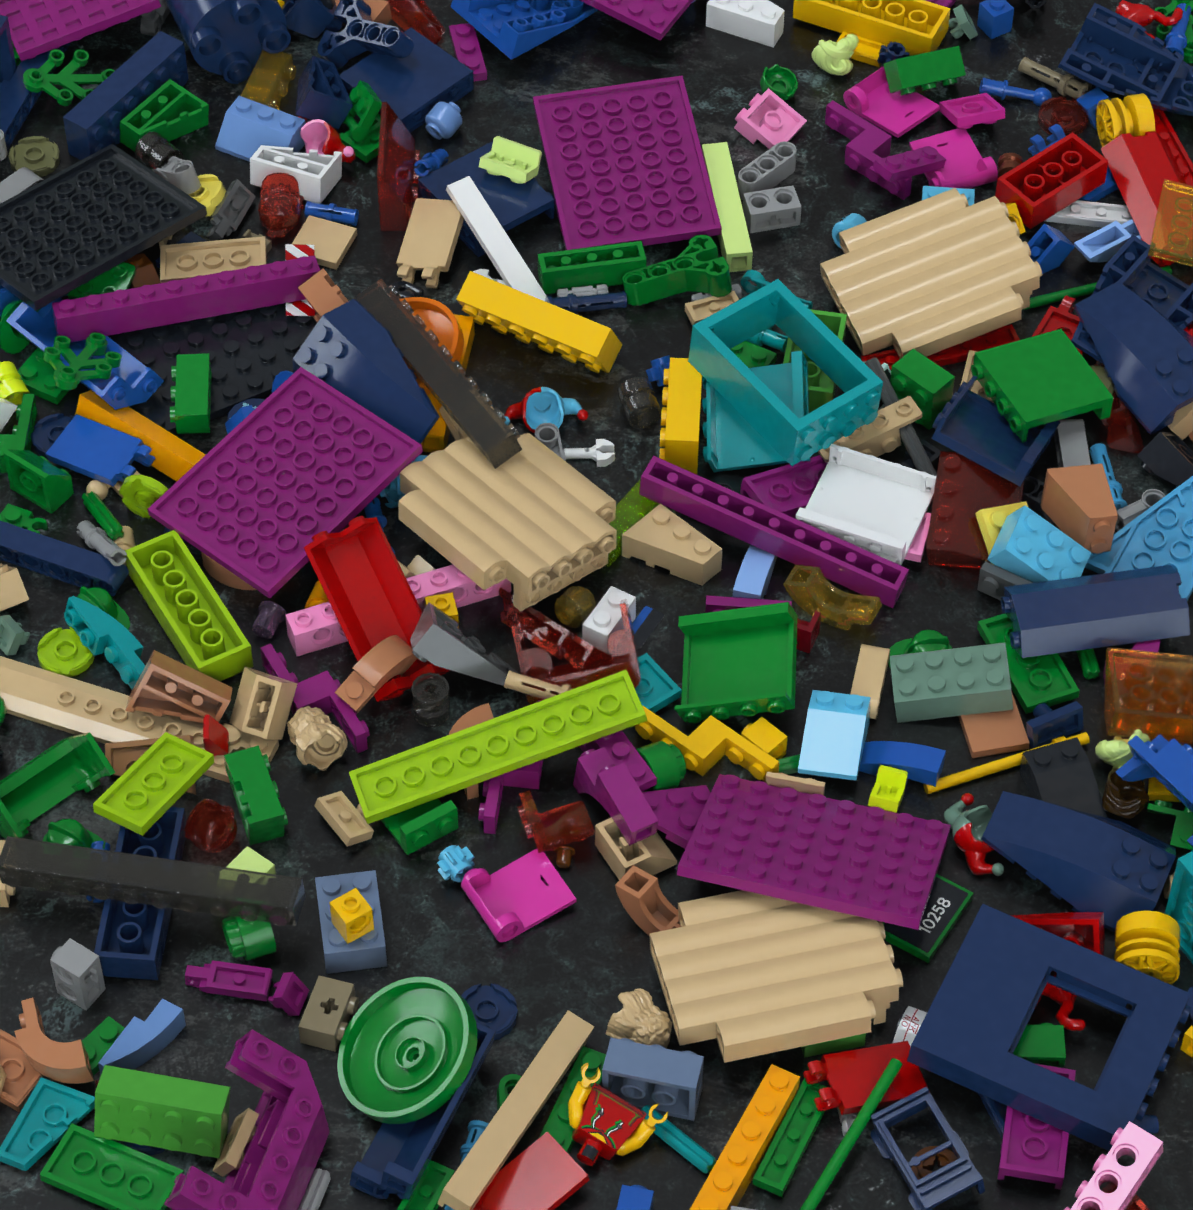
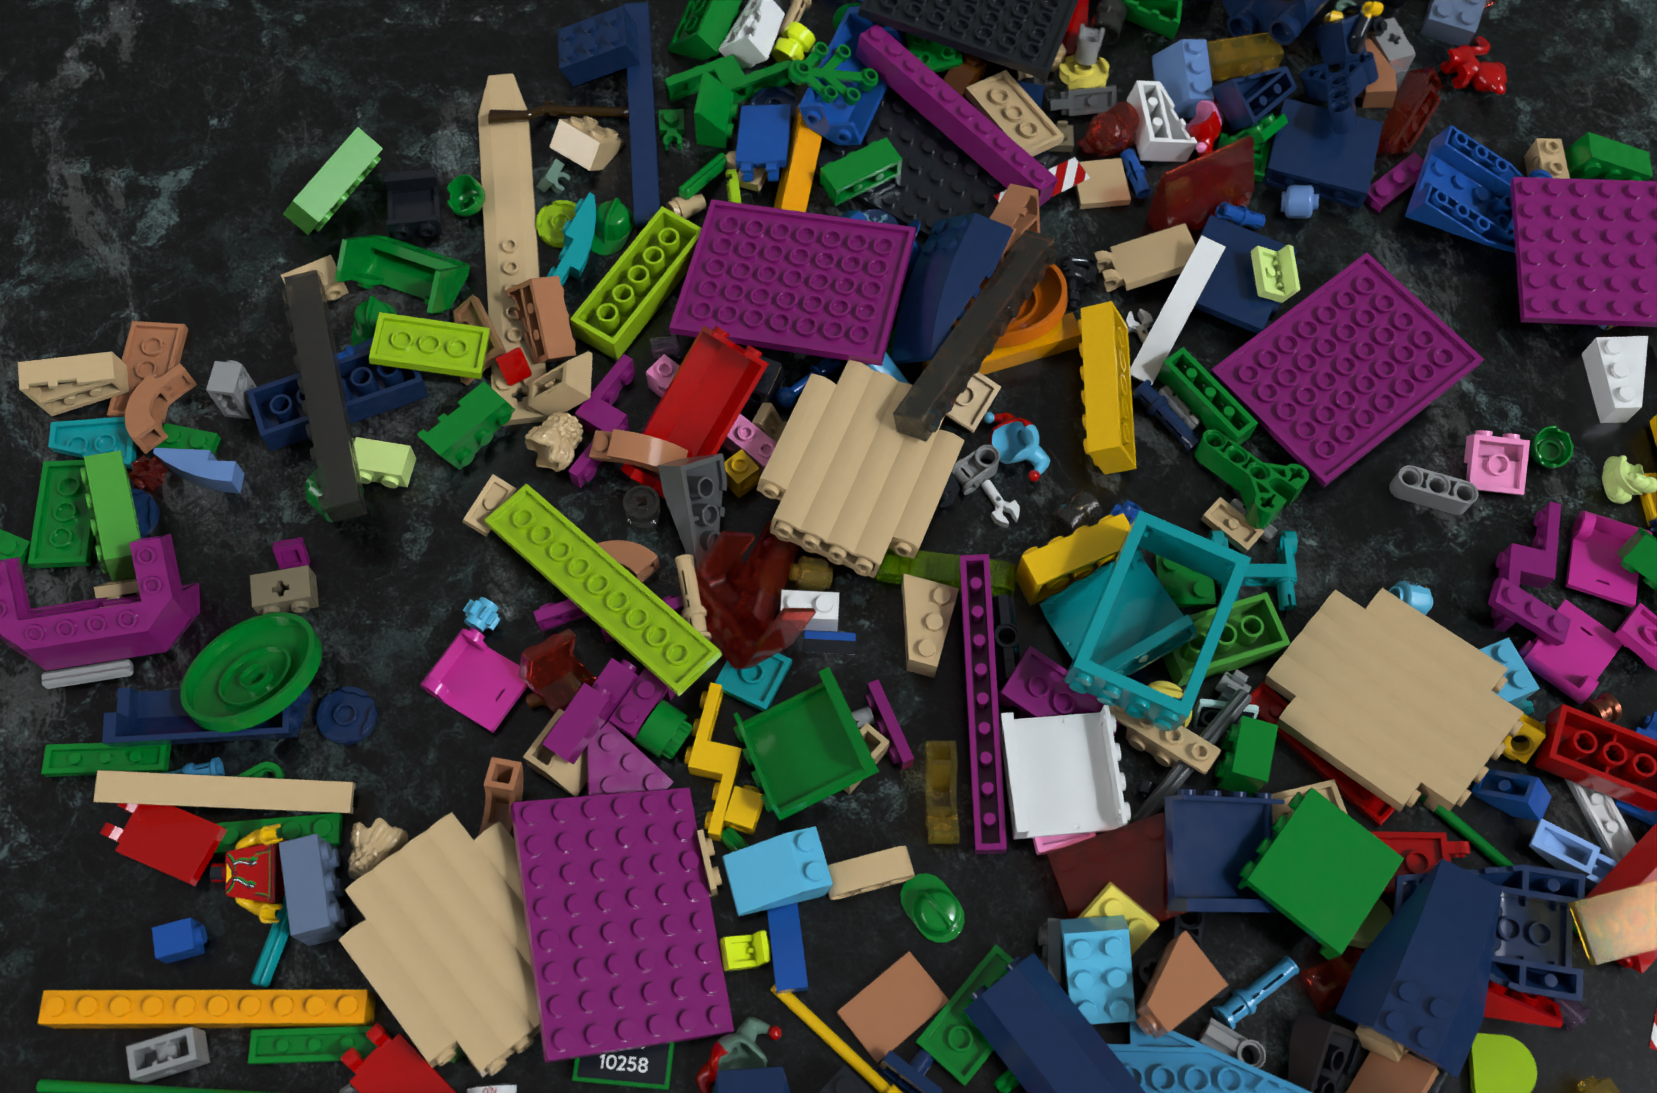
camera: 60 degrees right, 15 degrees up
(97, 539) = (669, 189): light grey pin -> none
(211, 826) = (422, 410): clear red helmet -> none
(231, 979) = (289, 504): magenta hinge -> none
(351, 915) = (355, 558): yellow brick -> none
(365, 951) = (382, 562): sand blue brick -> none
(422, 824) = (509, 570): green bracket -> none
(734, 236) = (1363, 476): yellowish green brick -> none
(754, 574) = (931, 710): light blue slope -> none
(771, 209) = (1385, 520): light grey brick -> none
(808, 632) = (894, 784): dark red panel -> none
(951, 682) = (900, 953): sand green brick -> none
(1071, 443) = (1264, 944): light grey beam -> none

